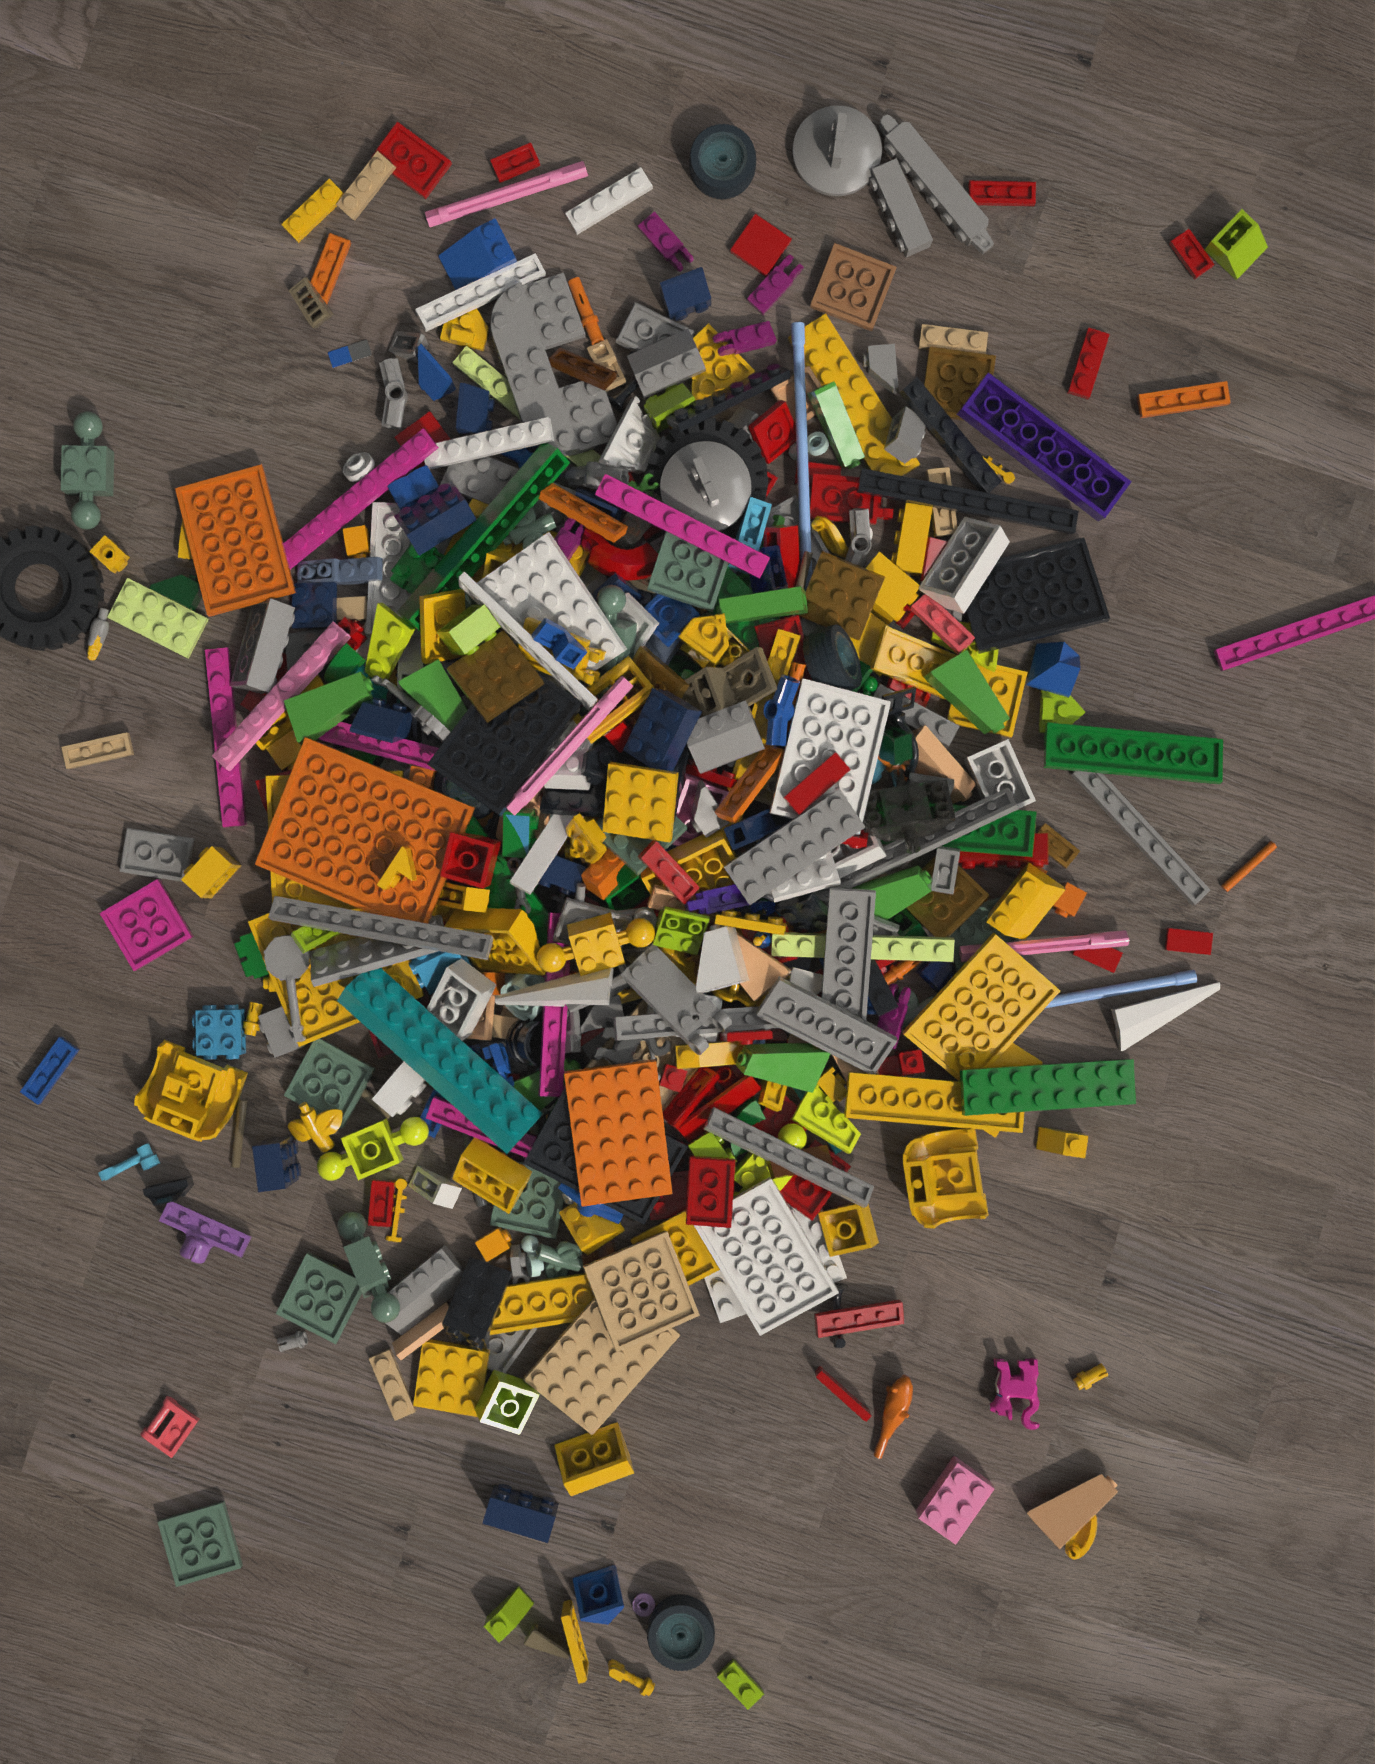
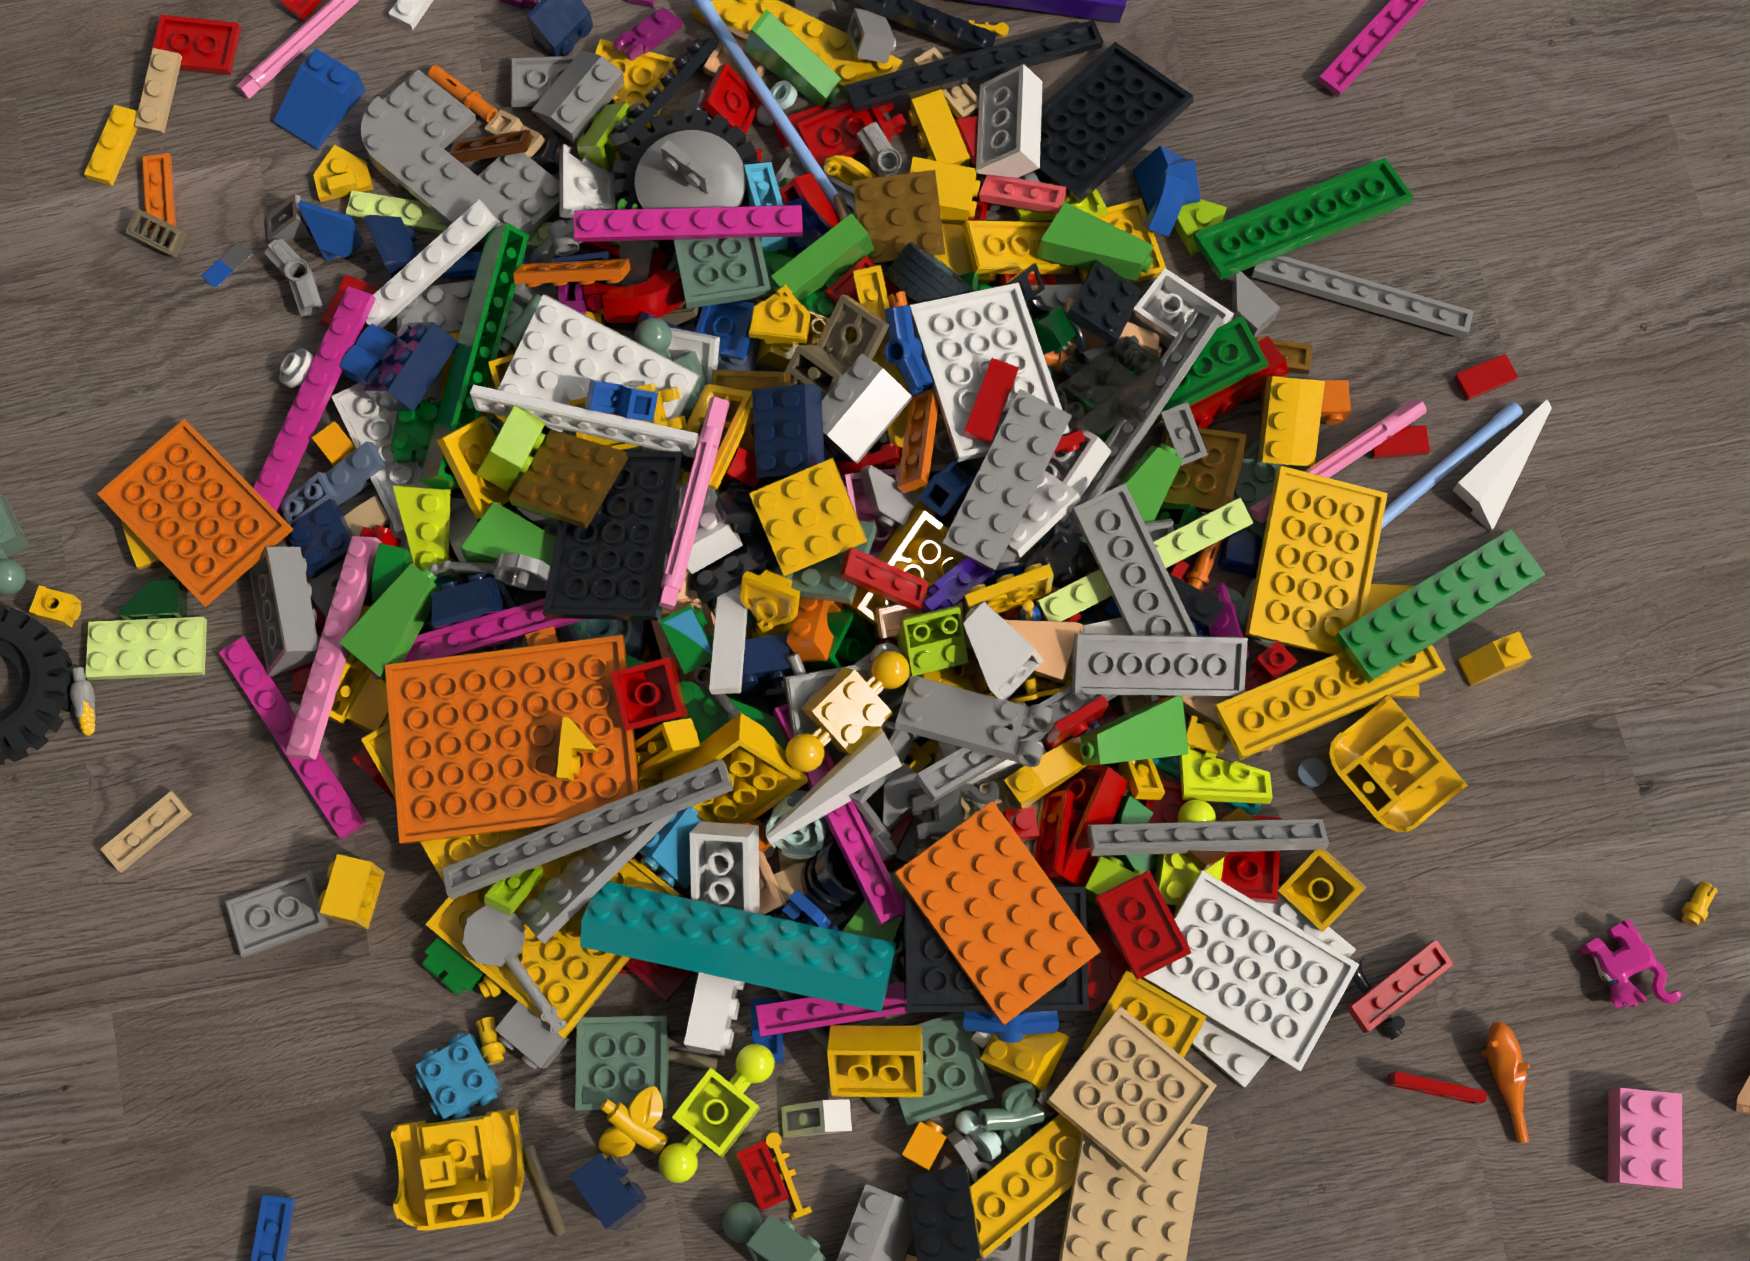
camera: 30 degrees left, 15 degrees down
(146, 925) = (304, 1001): dark pink plate -> none
(479, 292) = (336, 131): white plate -> none
(891, 1146) = (1311, 773): none -> sand blue tile
(947, 744) = (1104, 303): none -> black plate
(1043, 687) = (1169, 200): none -> blue slope
(1054, 798) = (1252, 304): none -> light grey slope
(1249, 866) = (1496, 269): orange bar -> none

